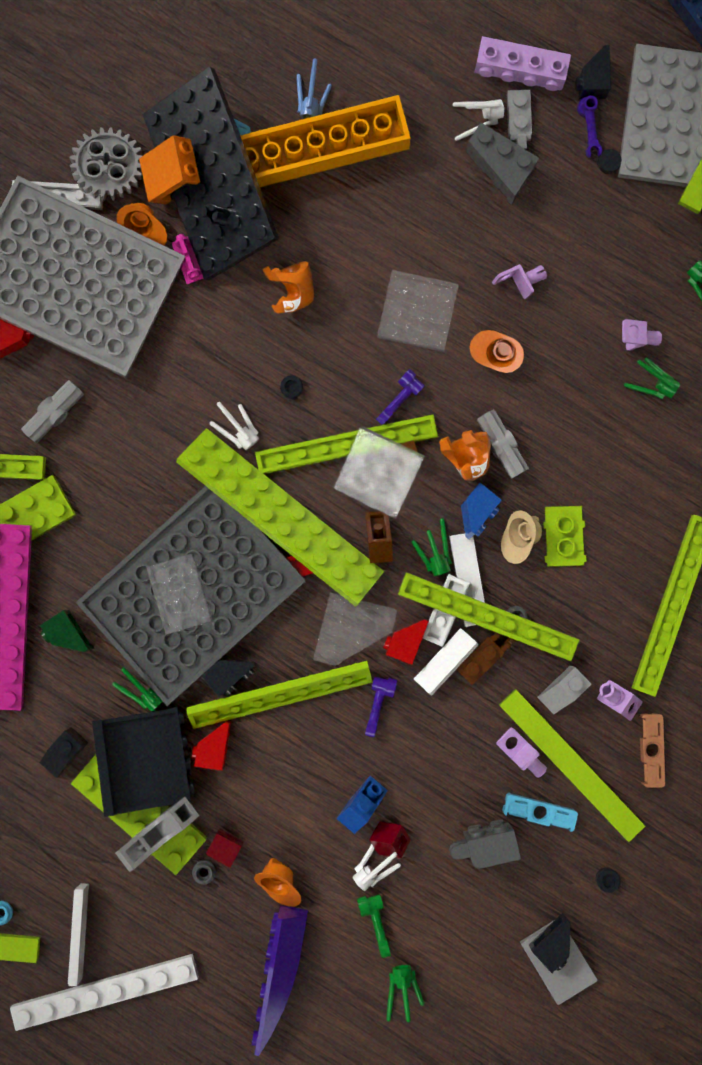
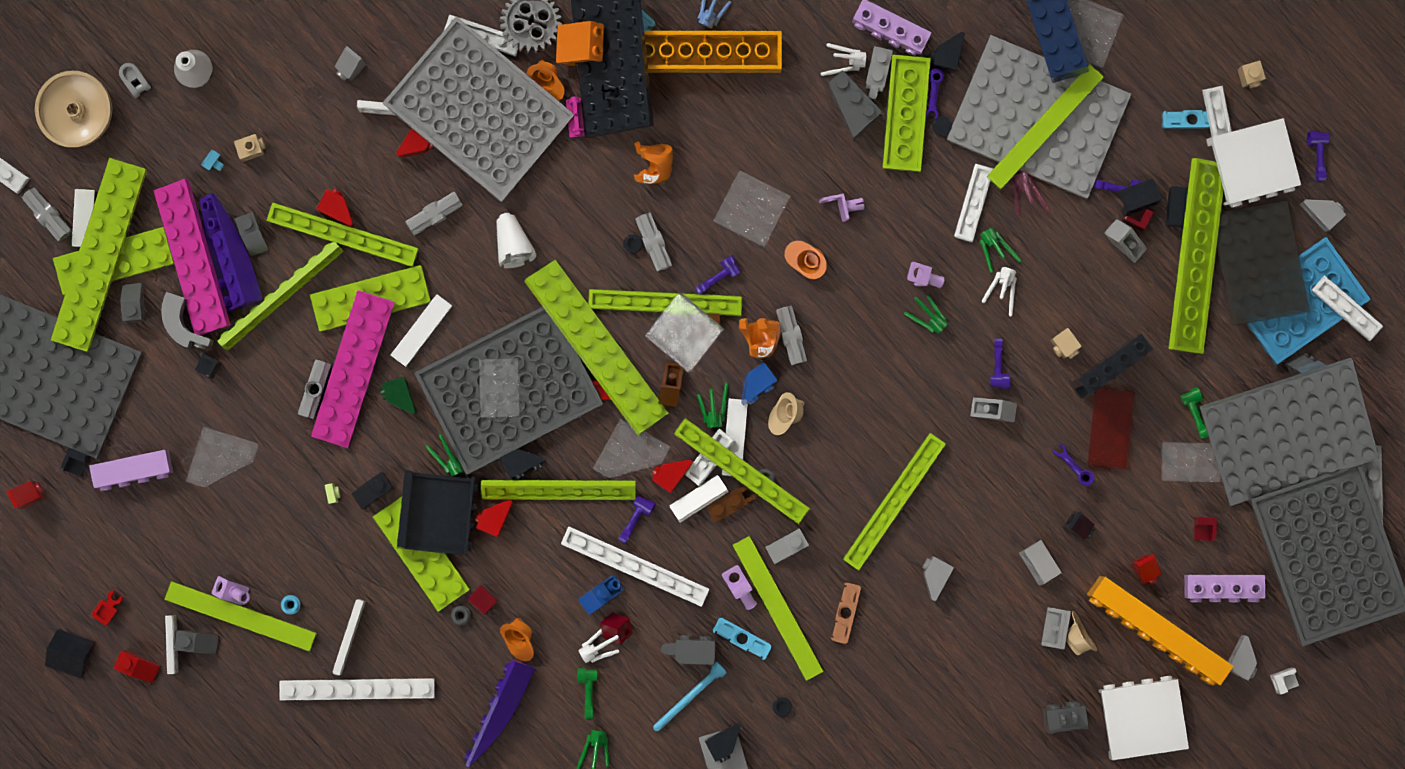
camera: 10 degrees right, 0 degrees up
(15, 769) = (332, 493): none -> yellowish green plate
(72, 550) = (421, 330): none -> white tile
(151, 421) = (512, 242): none -> white cone
(157, 833) = (435, 571): light grey arch -> none
(246, 436) = (585, 275): white plant -> none
(314, 378) = (653, 242): none -> light grey piece
(393, 760) = (635, 566): none -> white plate
(526, 859) = (716, 672): none -> medium azure piece
(564, 536) = (822, 423): lime piece -> none
(565, 156) = (906, 113): none -> lime plate
(619, 699) = (829, 565): lavender bracket -> none
(668, 239) = (973, 203): none -> white tile

